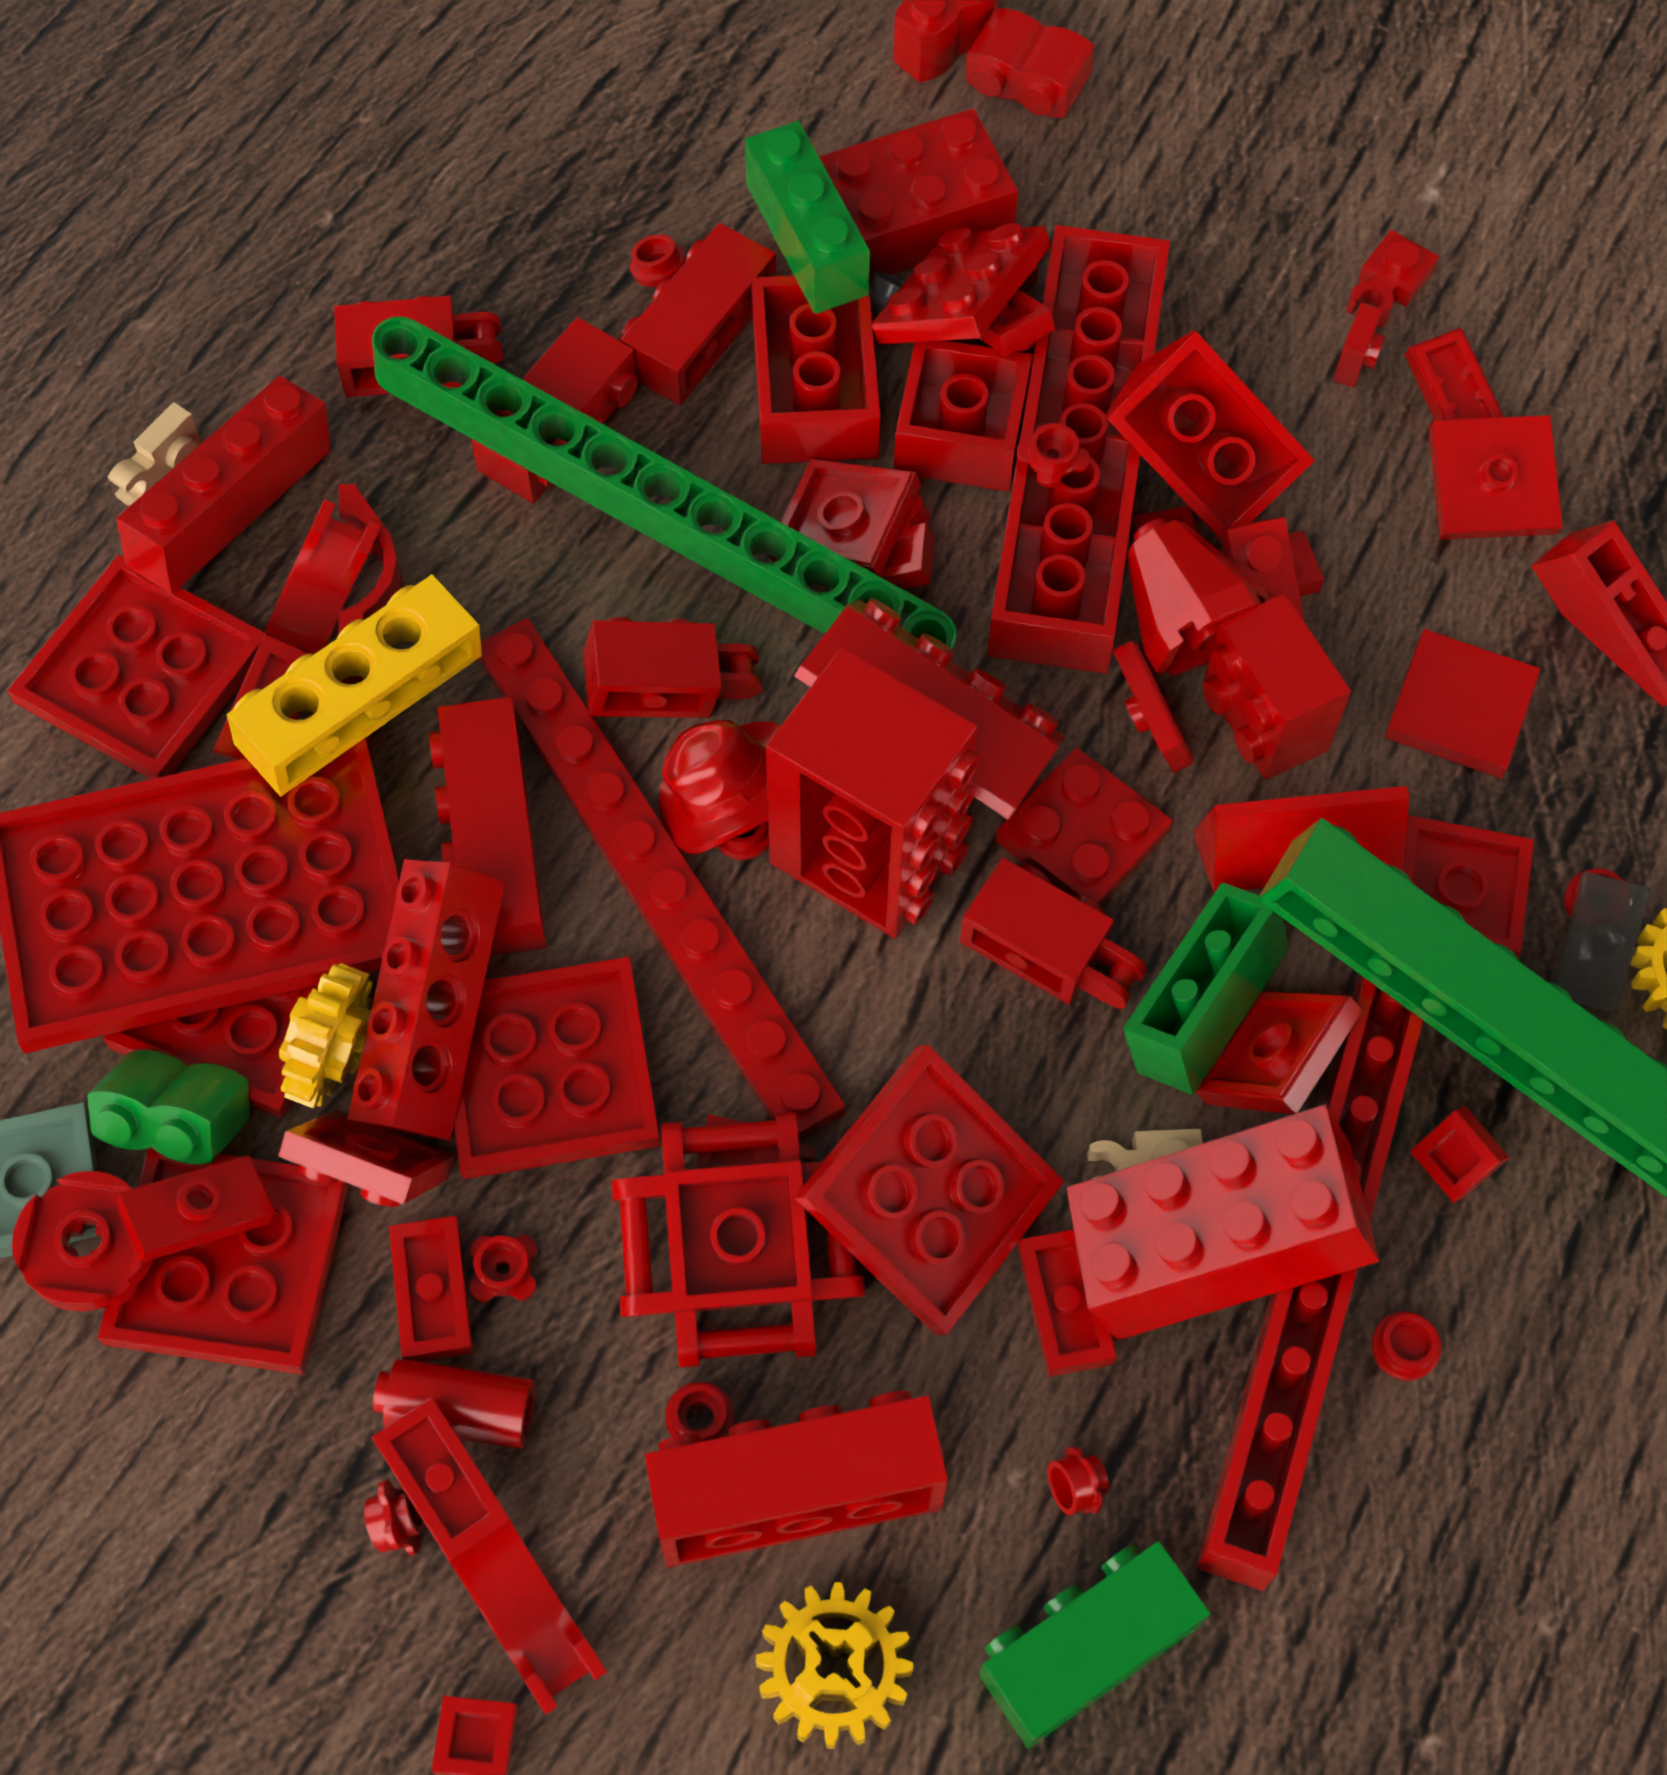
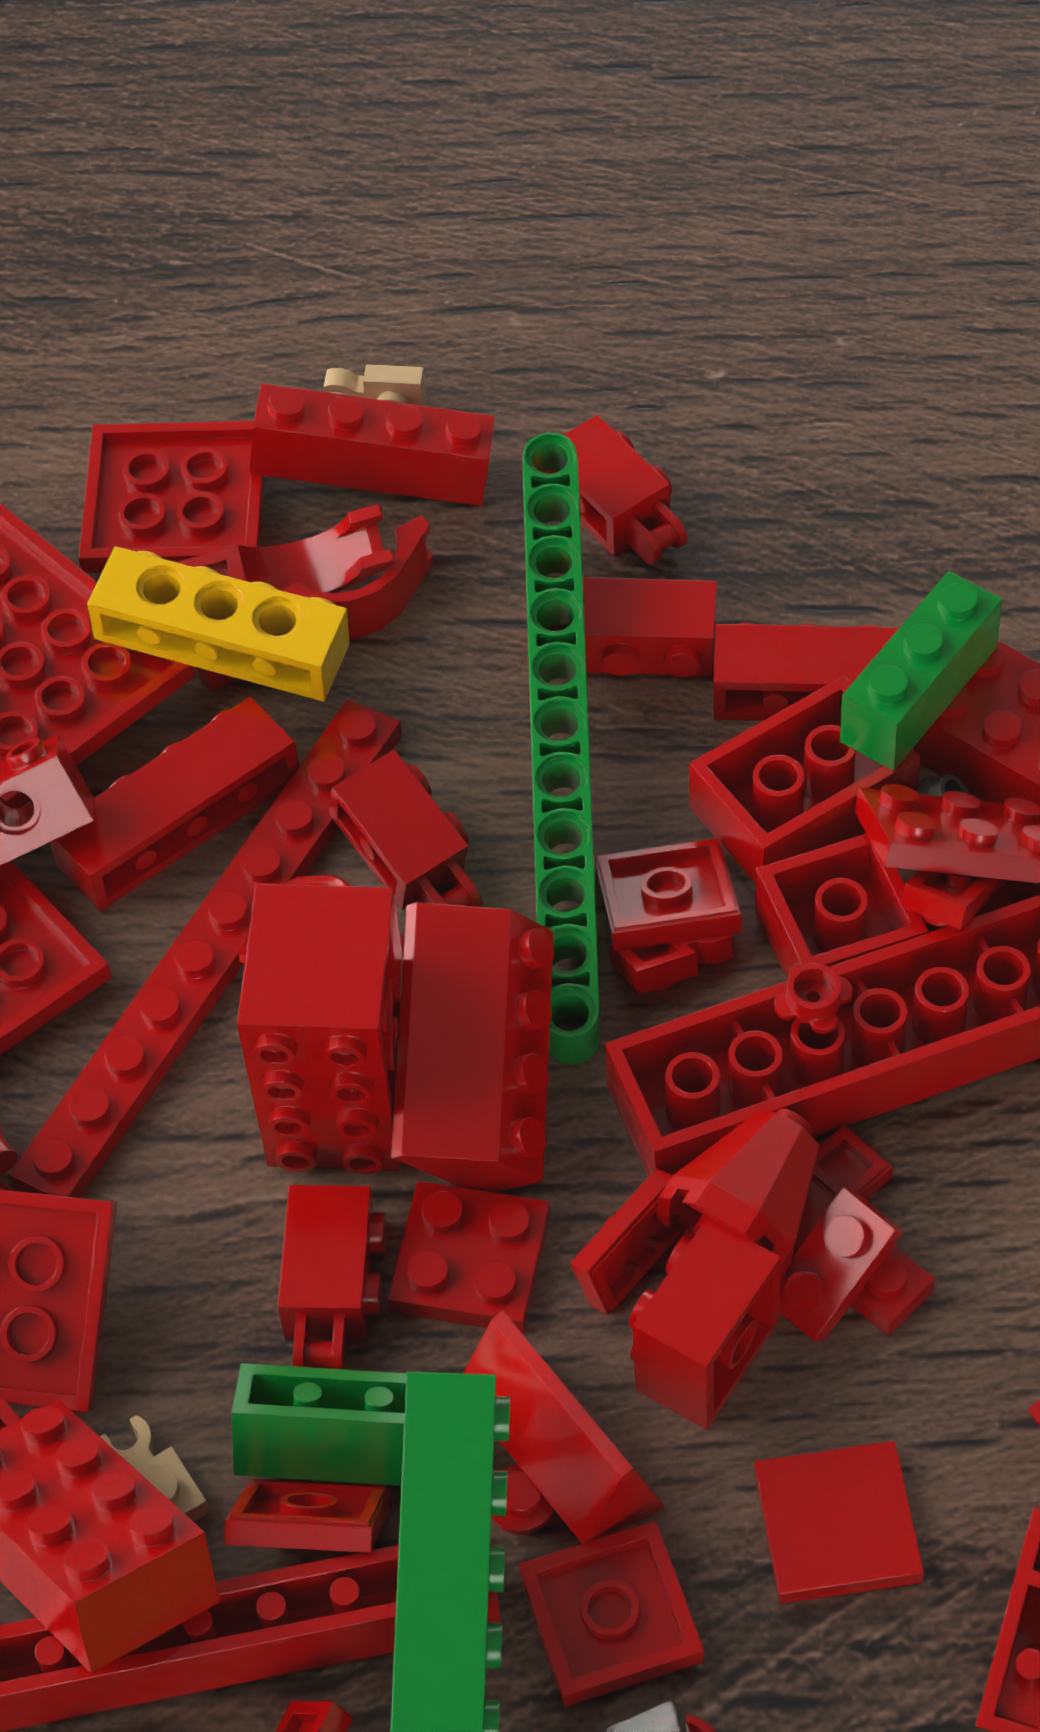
camera: 65 degrees right, 10 degrees down
(656, 259) = (843, 608): red plate -> none
(1207, 433) = (935, 1119): red slope -> none

